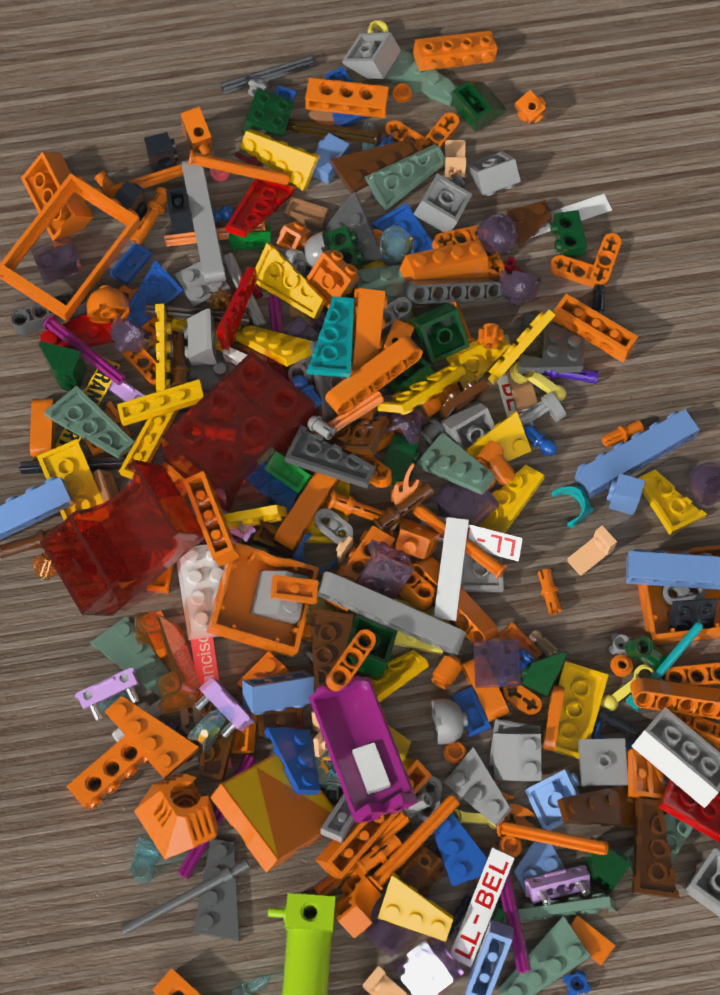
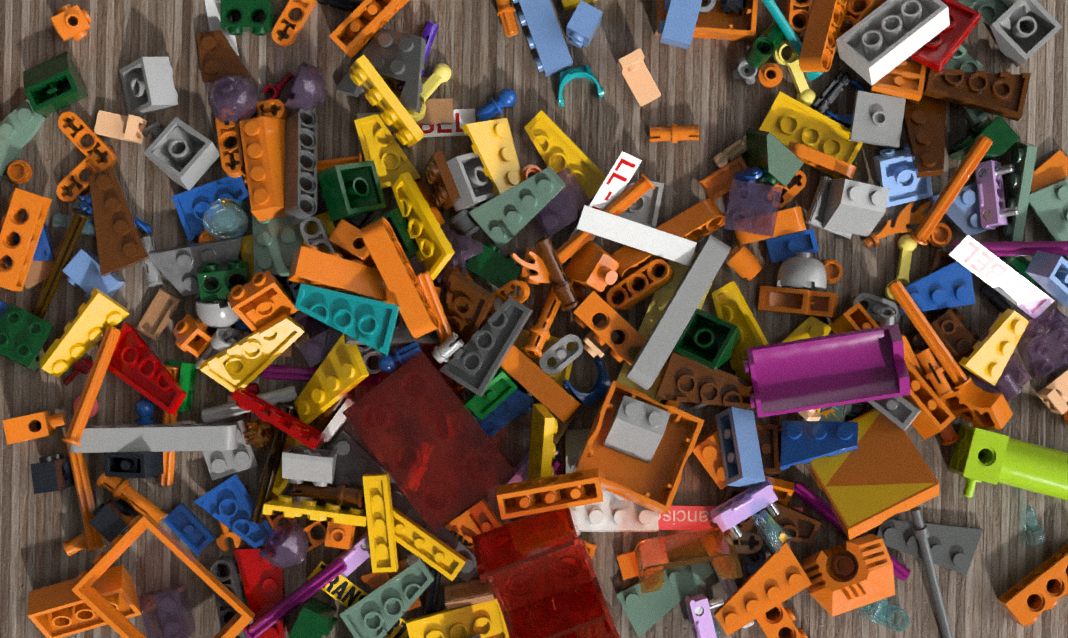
camera: 85 degrees left, 20 degrees up
(106, 304) = (244, 566): orange cylinder -> none
(145, 375) = (340, 535): none -> orange brick
(294, 589) = (643, 414): orange plate -> none
(337, 201) = (152, 273): none -> light grey pin
(345, 669) = (746, 371): orange beam -> none
(371, 768) = (850, 365): white tile -> none
(386, 570) = (633, 306): bracket -> none
(401, 177) = (136, 193): sand green wing -> none
(421, 727) = (798, 301): none -> orange slope
(476, 786) = (877, 255): light grey wing -> none
(490, 336) = (365, 133): orange gear -> none
(492, 458) = (517, 162): orange piece -> none
(549, 404) = (455, 86): light grey piece -> none

